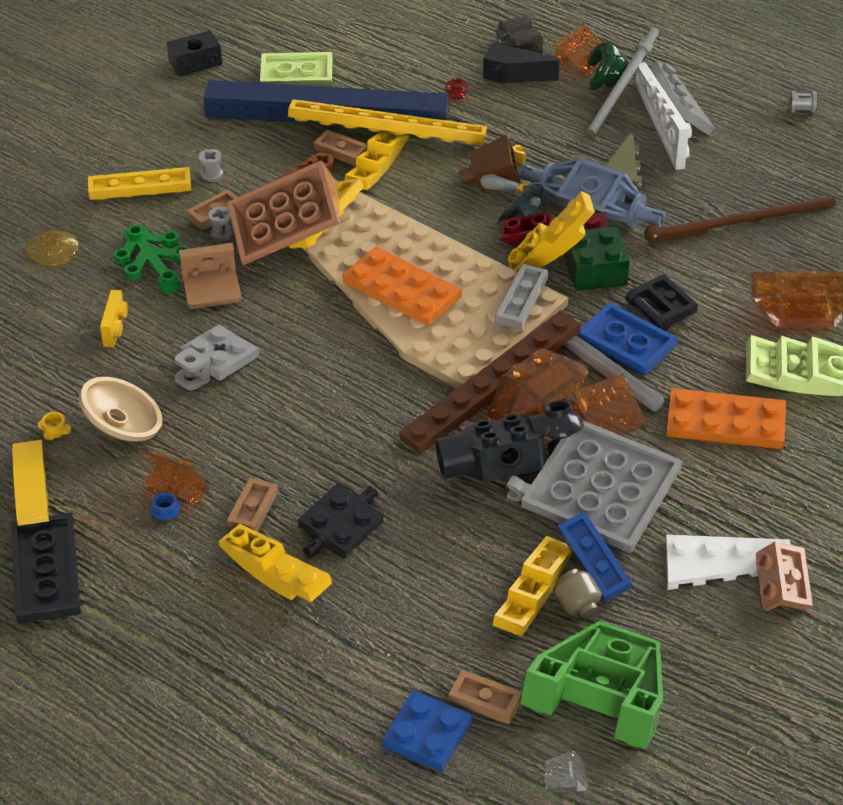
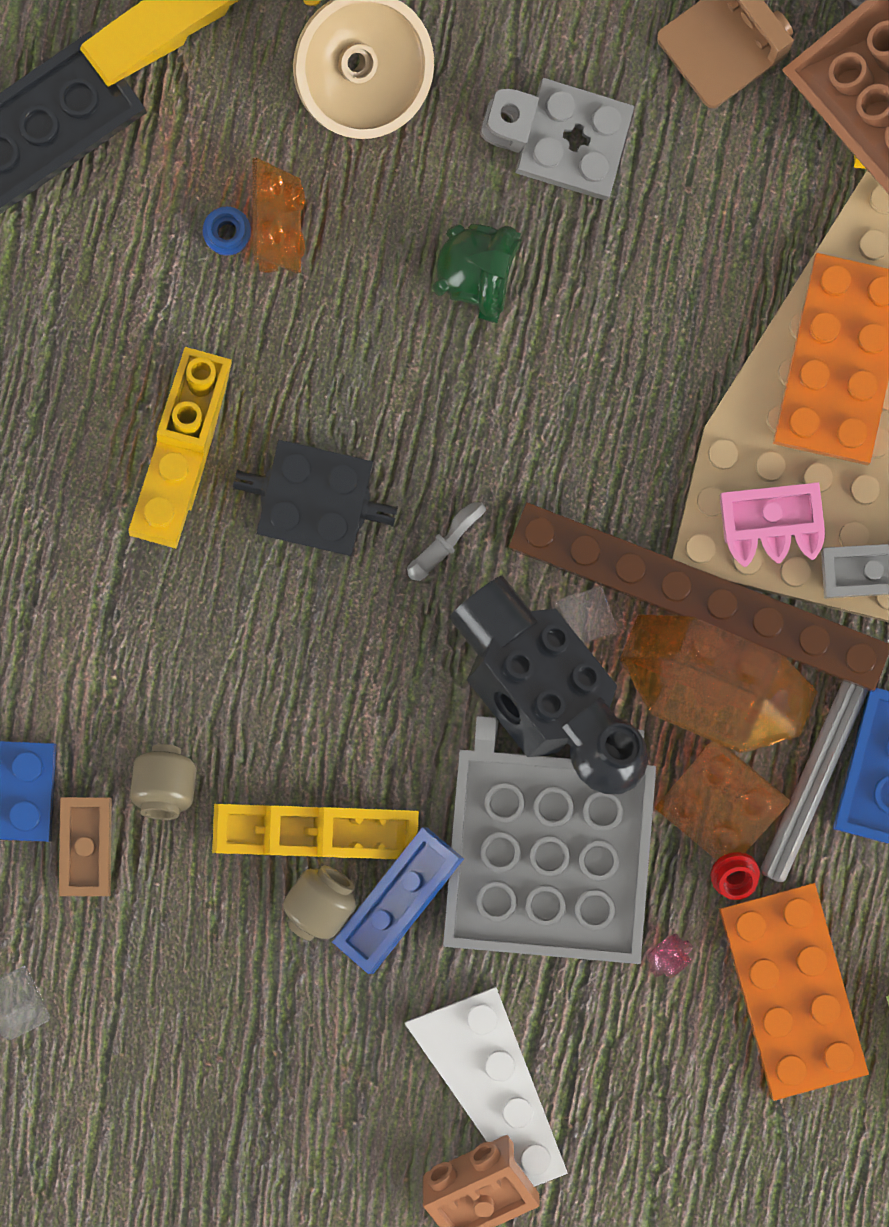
camera: 65 degrees right, 40 degrees up
(253, 504) = (281, 357): medium nougat plate -> none
(262, 401) = (476, 266): none -> dark green helmet
(394, 465) = (441, 547): none -> light grey piece
(467, 642) = (162, 782): none -> dark tan head
(469, 331) = (773, 518): none -> bright pink plate
(604, 672) = (205, 1000): bright green wedge -> none
(651, 416) = (738, 885): none -> red plate
(684, 453) = (670, 956): none -> clear pink plate

